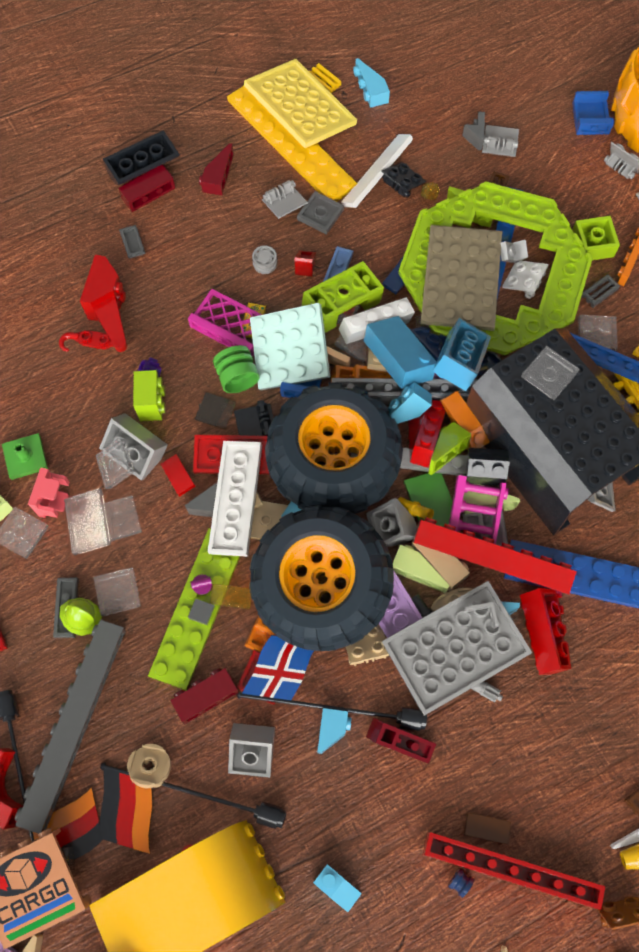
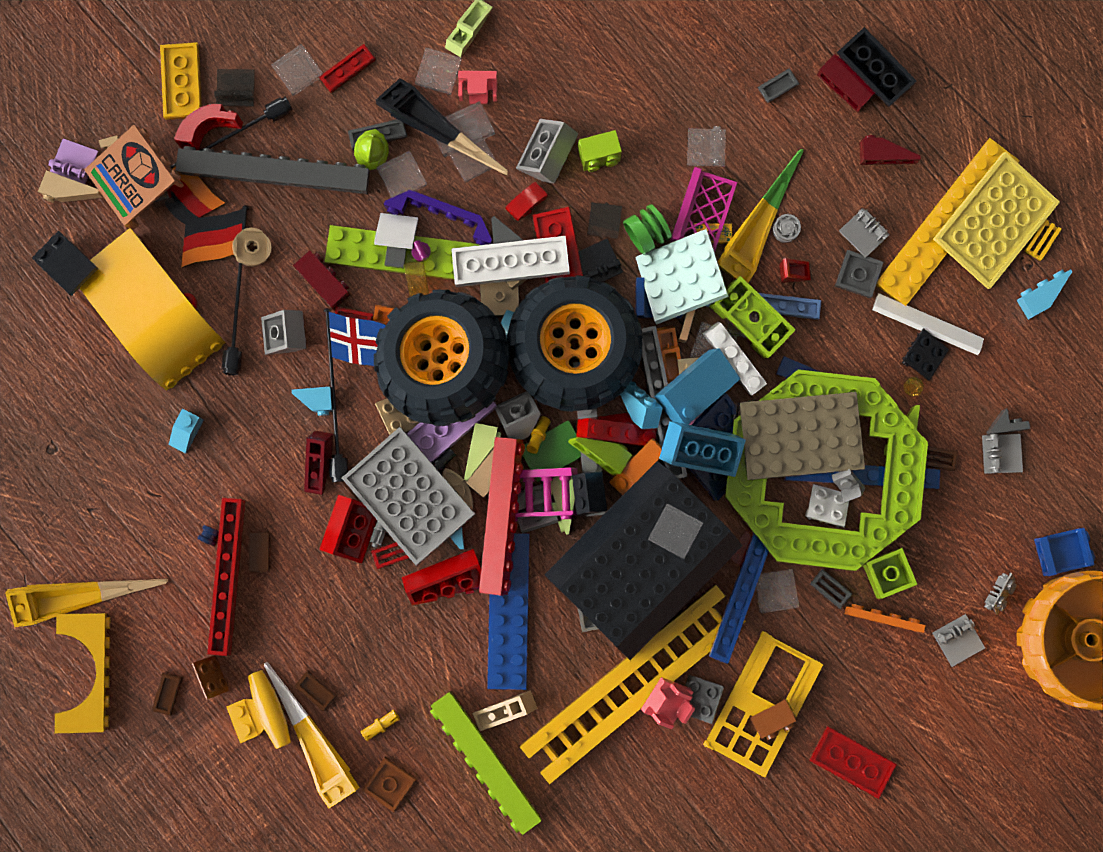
camera: 75 degrees right, 15 degrees up
(24, 456) = (516, 51): bright green tile -> none
(54, 561) = (415, 110): none -> black plate
(101, 303) = (697, 75): red slope -> none
(114, 463) = (523, 138): clear tile -> none
(148, 365) = (631, 144): dark purple gear -> none
(170, 309) = (706, 147): none -> clear hinge
(173, 606) = (396, 231): none -> white tile
(200, 524) = (399, 203): none -> dark purple slope
(270, 292) = (746, 246): none -> yellow plate
(479, 605) = (447, 509): light grey bracket -> none
(479, 722) = (348, 530): none -> red slope
(513, 699) = (377, 559): none -> red tile

